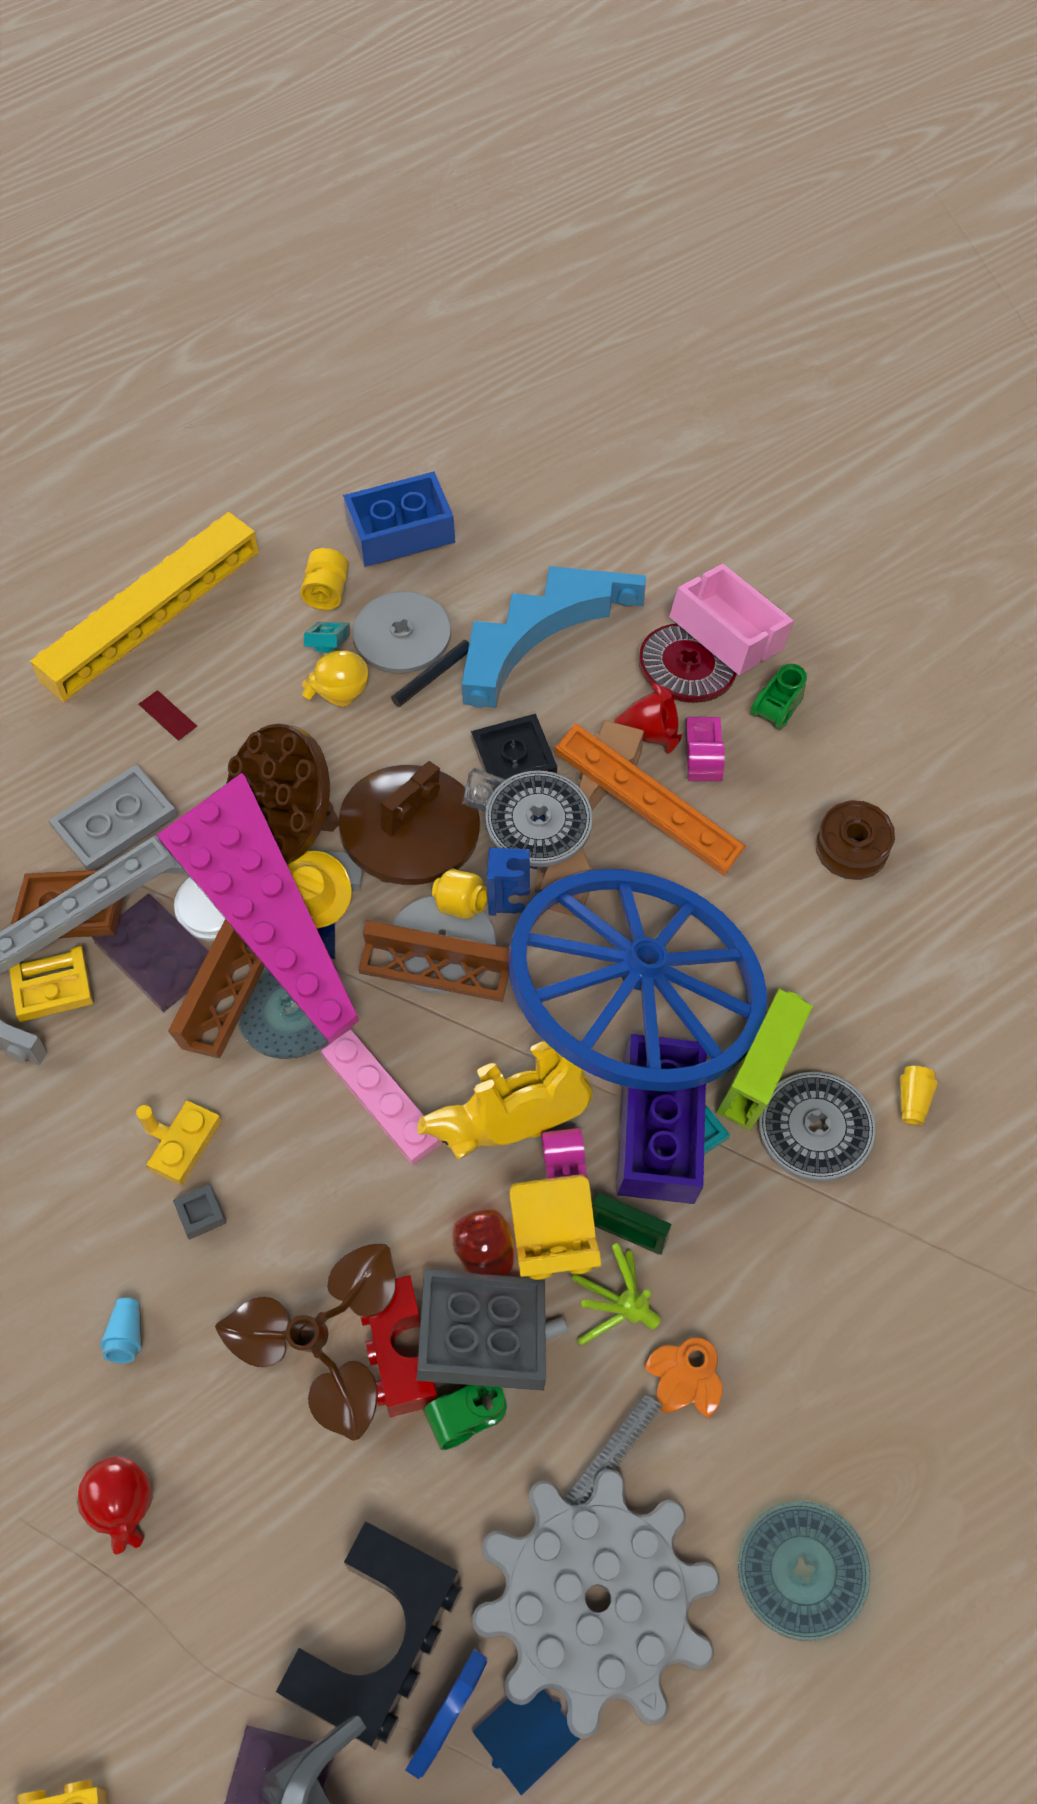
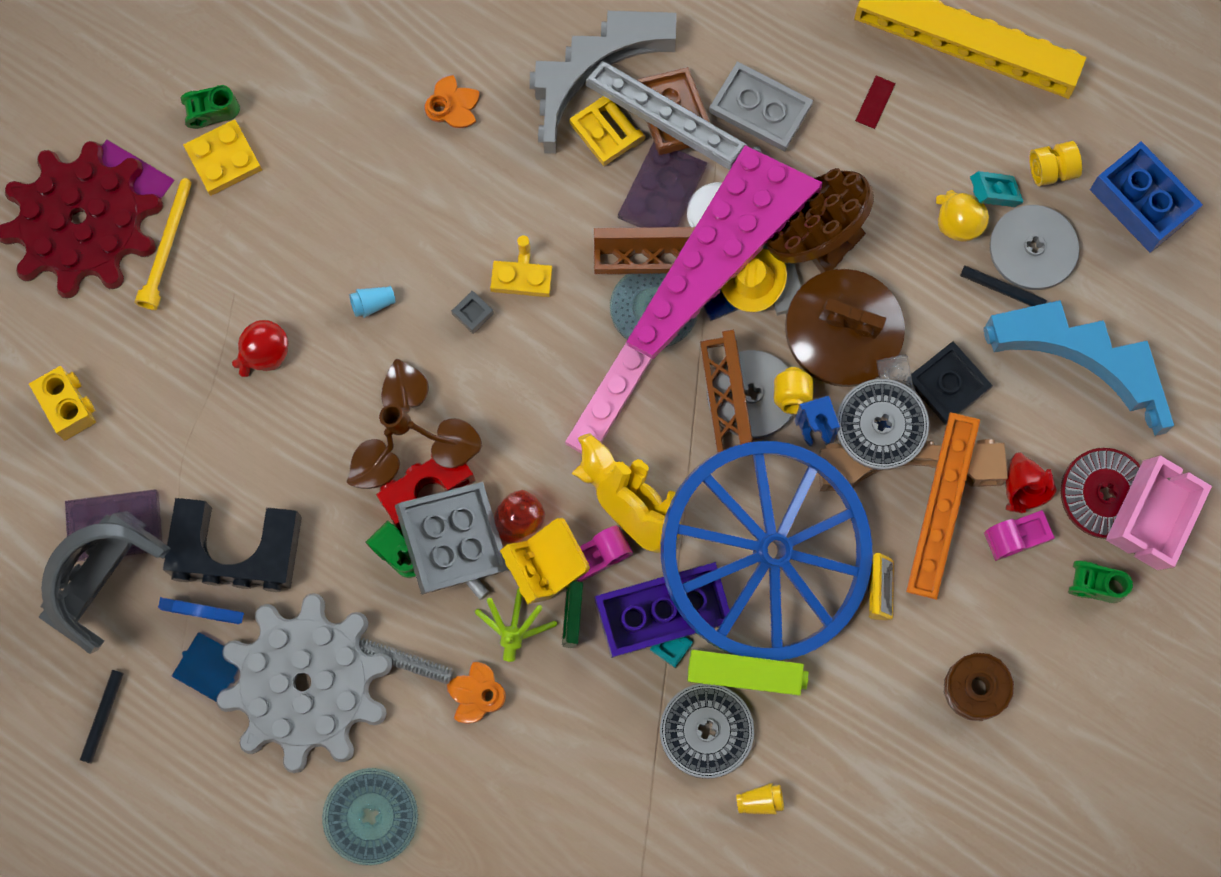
camera: 70 degrees right, 15 degrees up
(728, 902) = (881, 588): none -> yellow slope

